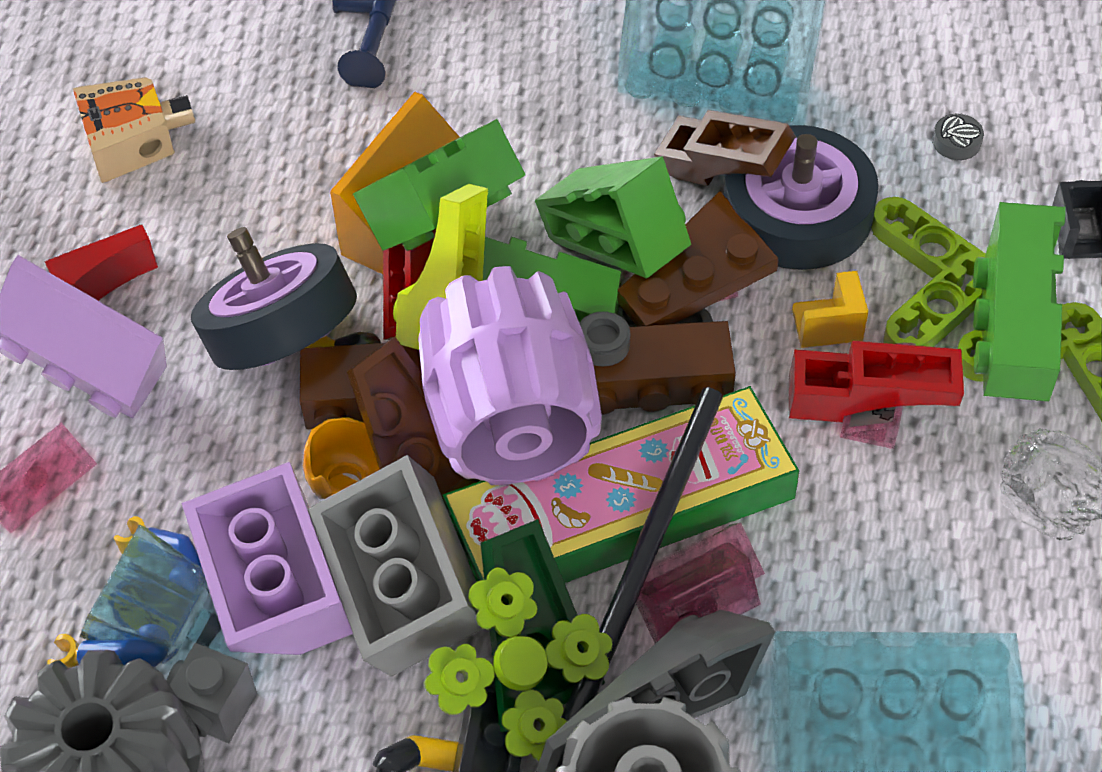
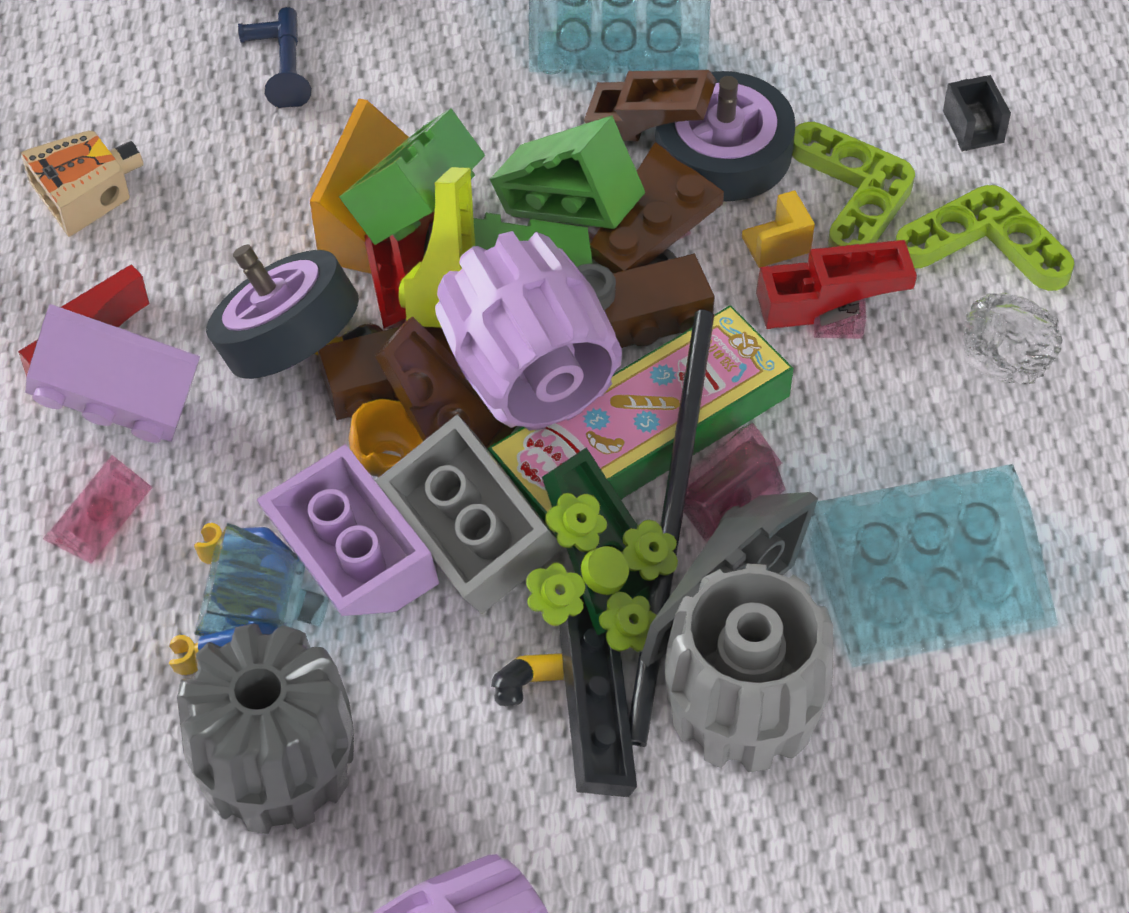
camera: 15 degrees left, 0 degrees up
(213, 690) = (344, 644): dark grey brick -> none
(958, 136) = (846, 60): tile -> none
(1020, 303) = (941, 193): bright green wedge -> none

